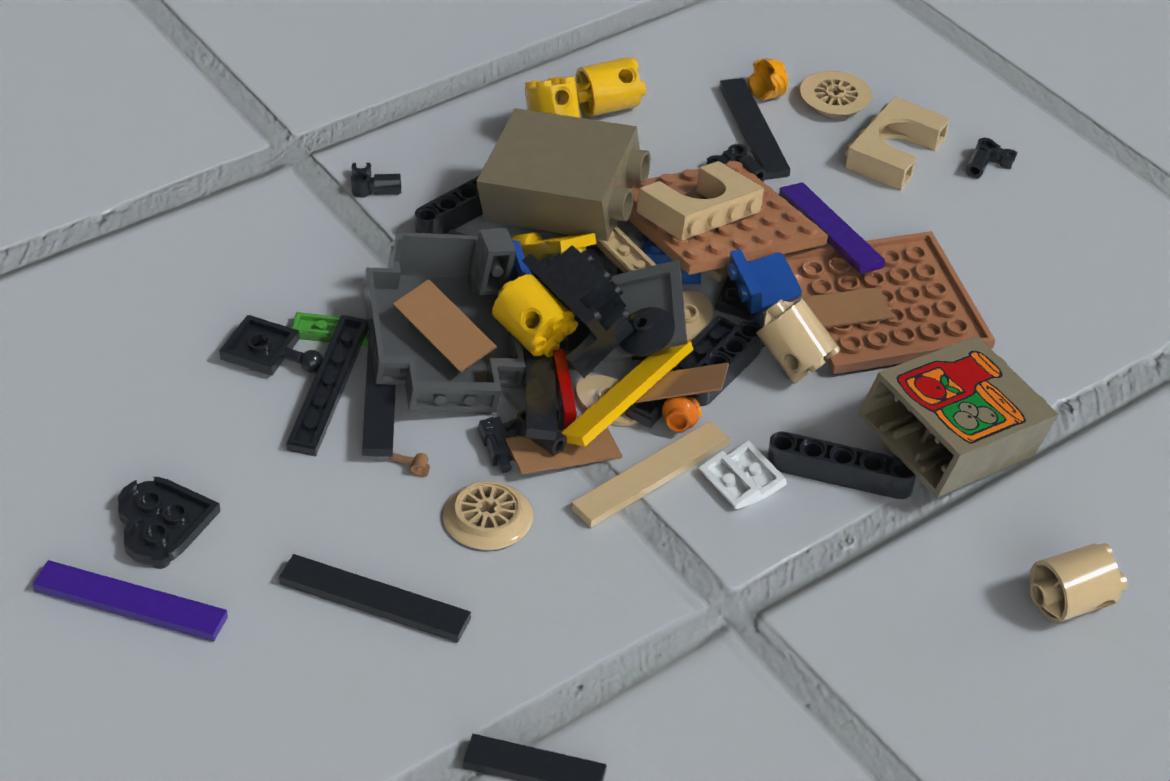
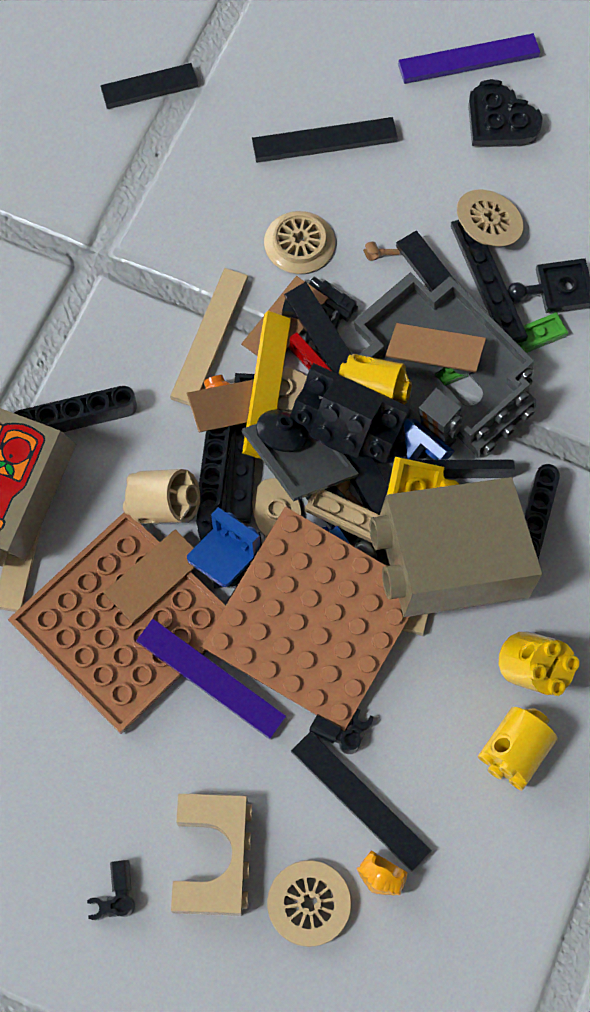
camera: 150 degrees right, 25 degrees up
(277, 422) = (492, 214): none -> tan piece
(728, 195) = (319, 553): tan arch -> none
(743, 475) = (143, 370): white slope -> none

